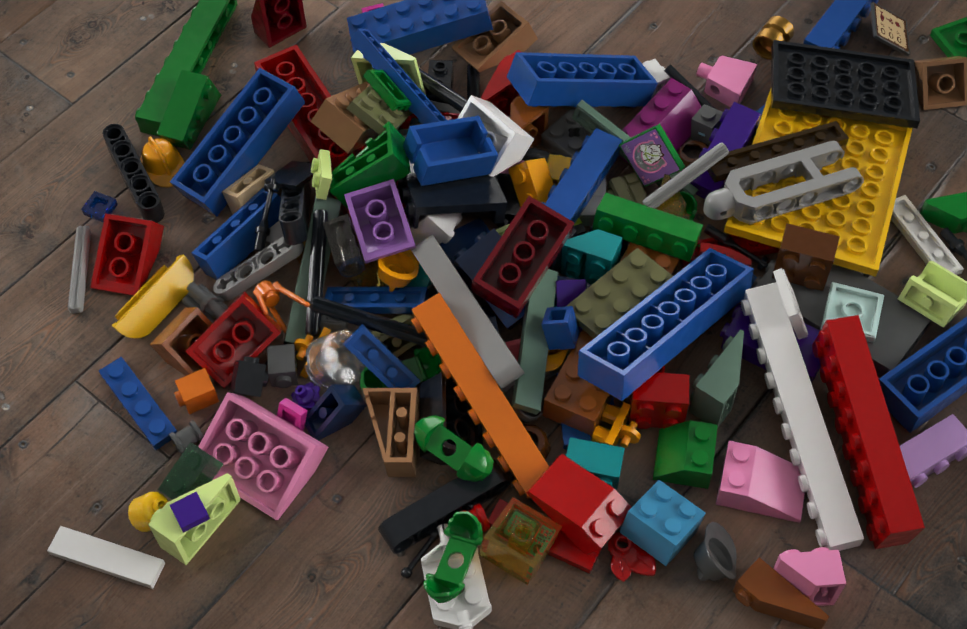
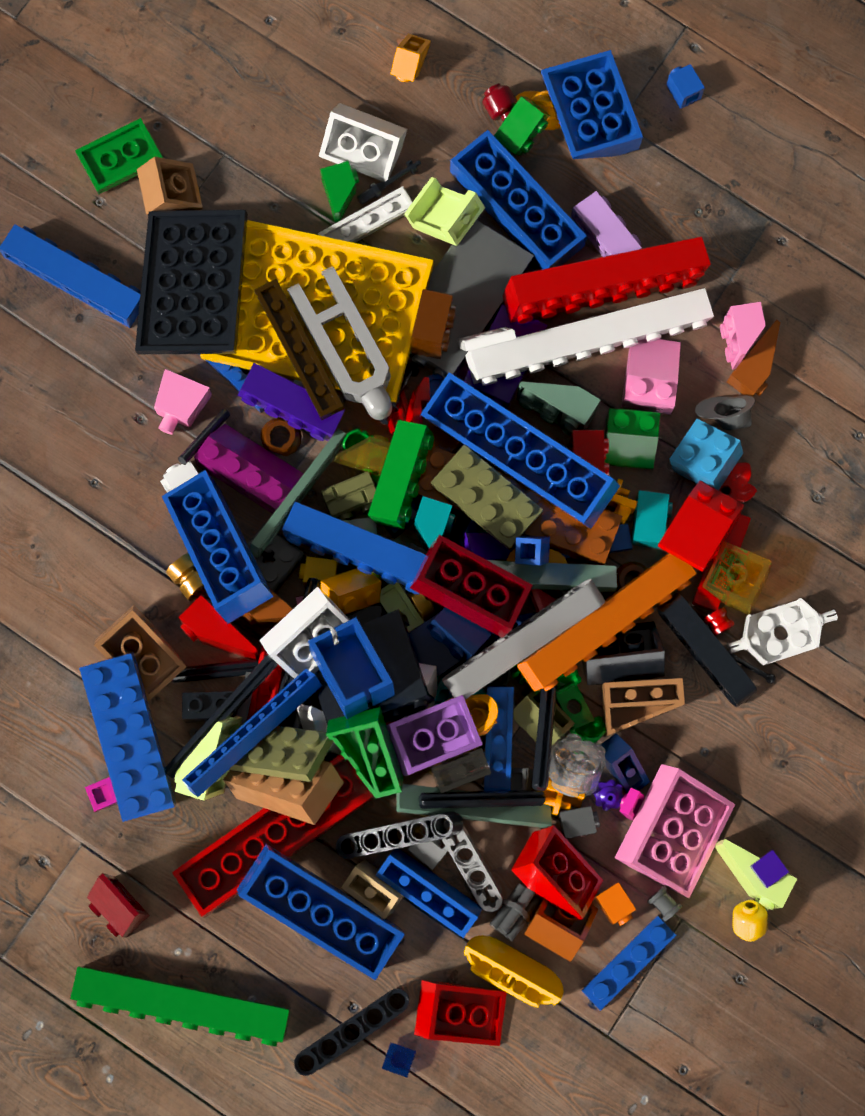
camera: 100 degrees left, 20 degrees up
(79, 270) = (478, 1062): light grey axle -> none
(106, 557) = (791, 956): white tile -> none
(161, 161) = (329, 1004): light orange piece -> none
(188, 109) = (264, 984): green wedge -> none
(190, 472) = (711, 887): clear green brick -> none
(249, 377) = (601, 852): black brick -> none
(262, 230) = (431, 865): black piece -> none
(269, 296) = (503, 849): orange plant -> none
(292, 175) = (360, 842): black piece -> none
(322, 174) = (378, 803): yellowish green plate -> none
(380, 359) = (578, 720): blue plate -> none
(387, 90) = (265, 747): green tile -> none
(465, 536) = (789, 638): green piece -> none
(469, 462) = (655, 662): green piece -> none
(652, 155) = (316, 470): tile -> none
(686, 176) = (346, 435): light grey axle -> none
(704, 123) = (247, 421): dark grey brick -> none
(775, 29) = (116, 352): pearl gold wheel -> none
(852, 301) = (476, 286): light aqua tile -> none
(890, 28) = (98, 233): piece -> none

